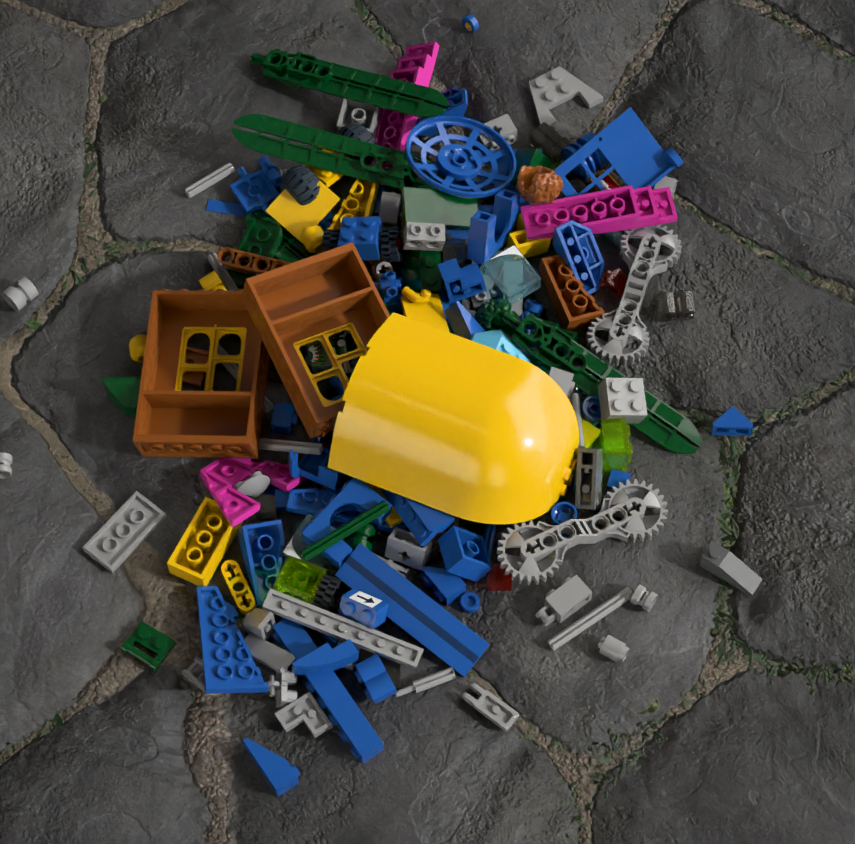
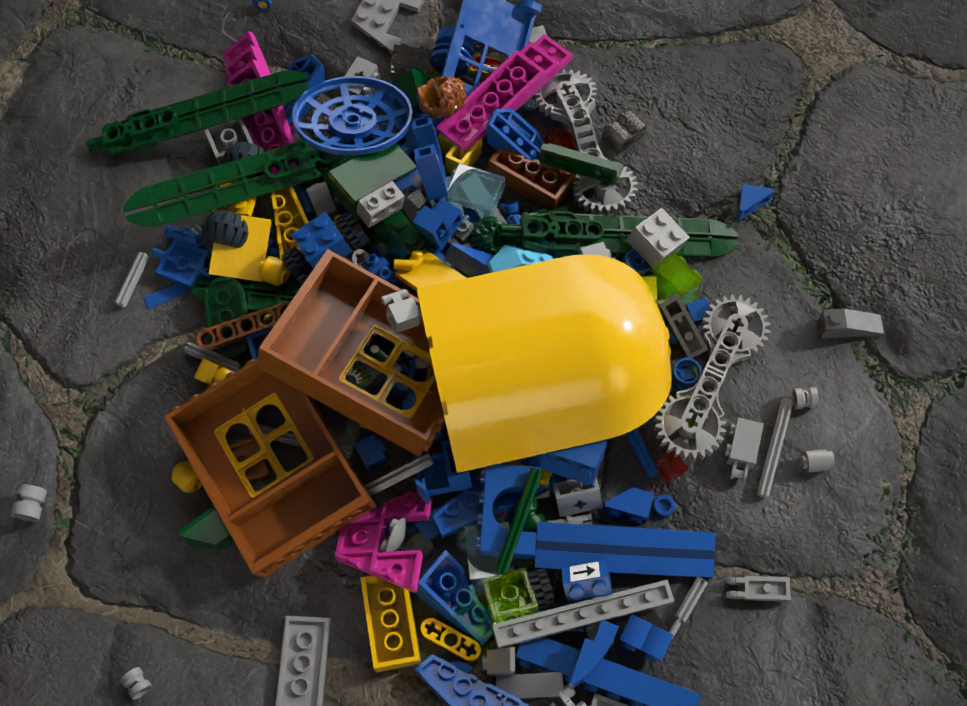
camera: 35 degrees left, 5 degrees up
(369, 319) = (402, 313): none -> light grey brick
(464, 553) = (632, 466): blue brick -> none
(611, 305) = (580, 163): none -> dark green fence

